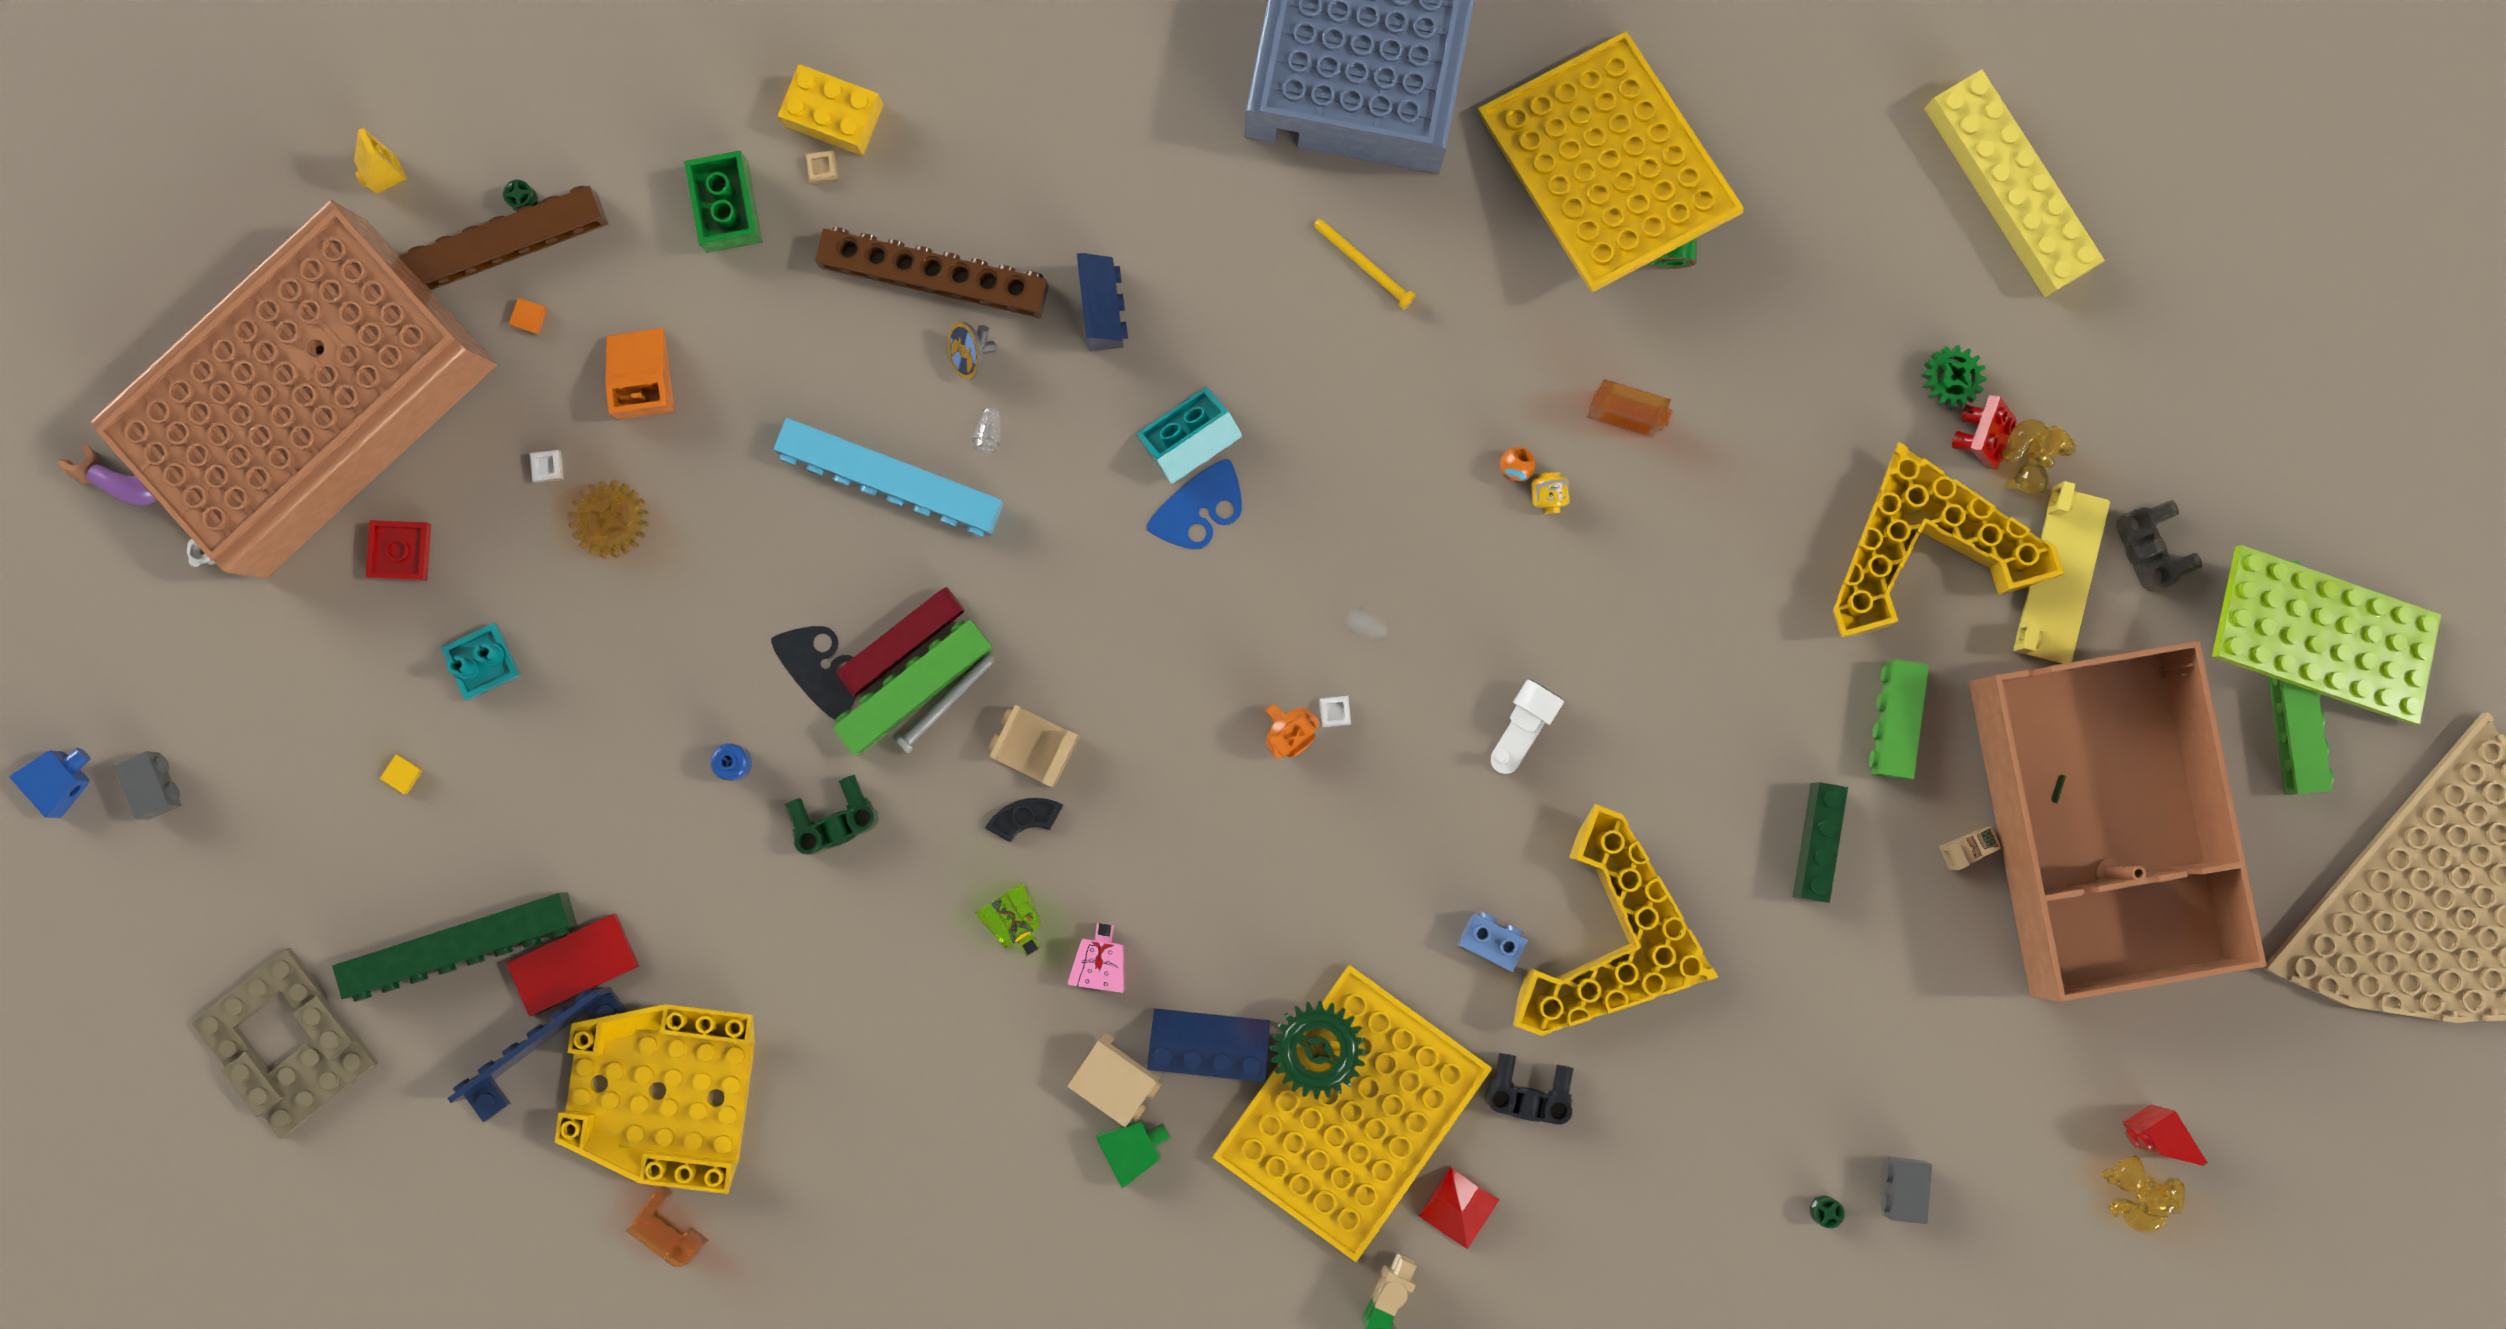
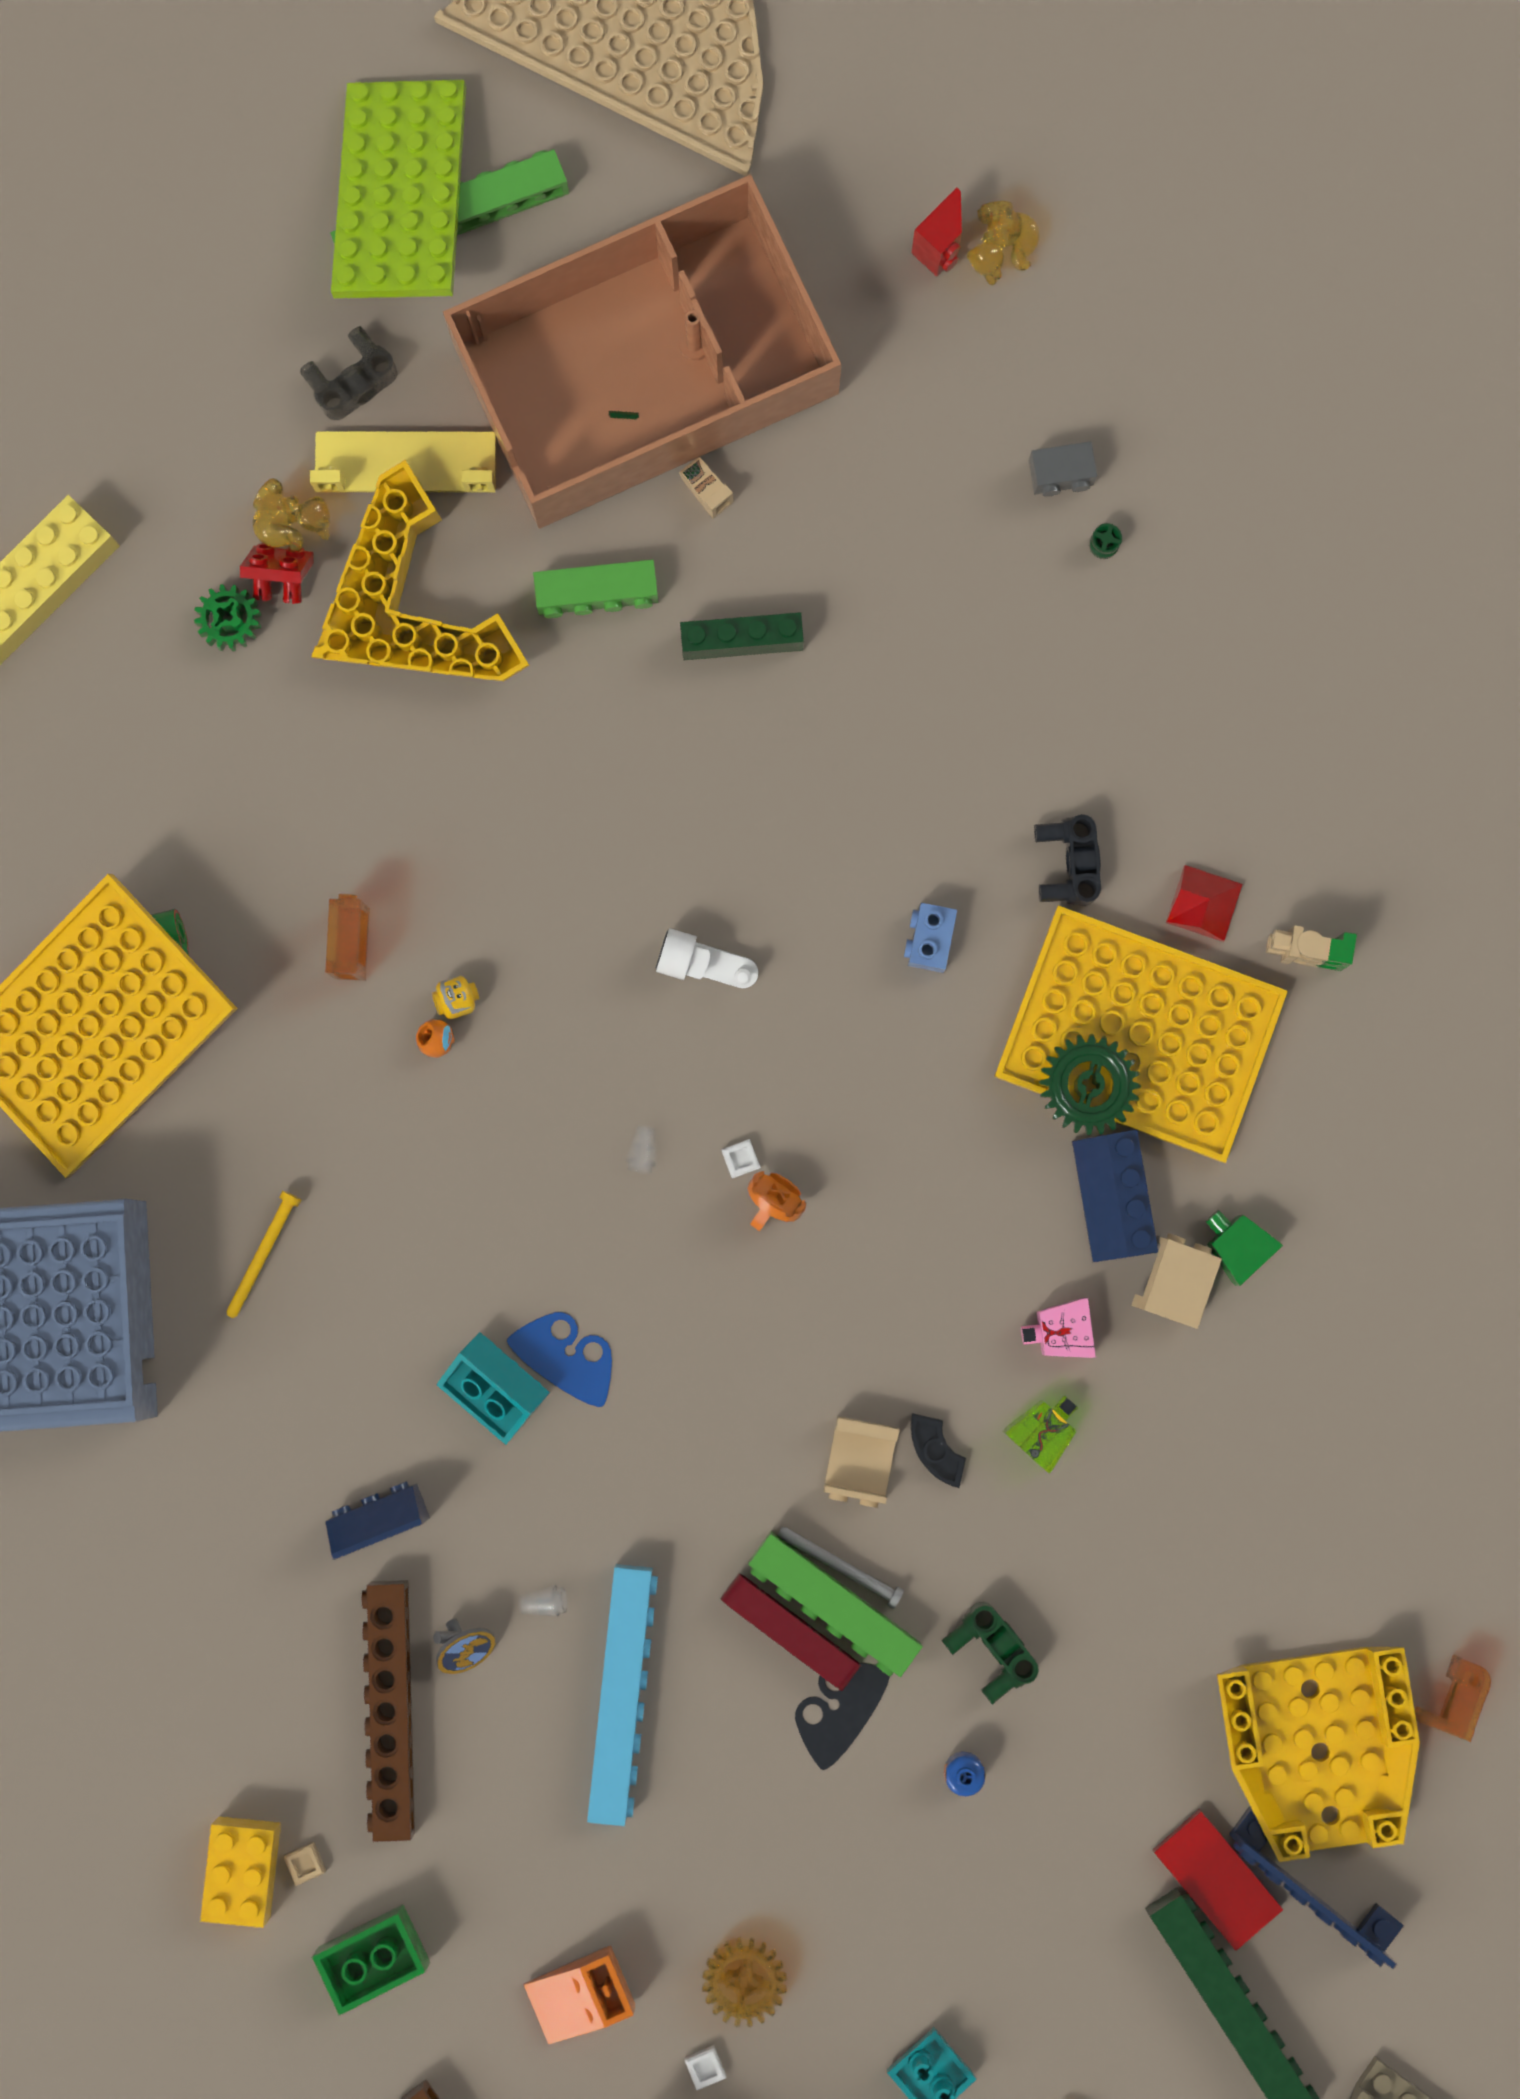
camera: 100 degrees left, 0 degrees up
(1660, 950) = (904, 769): yellow wedge -> none

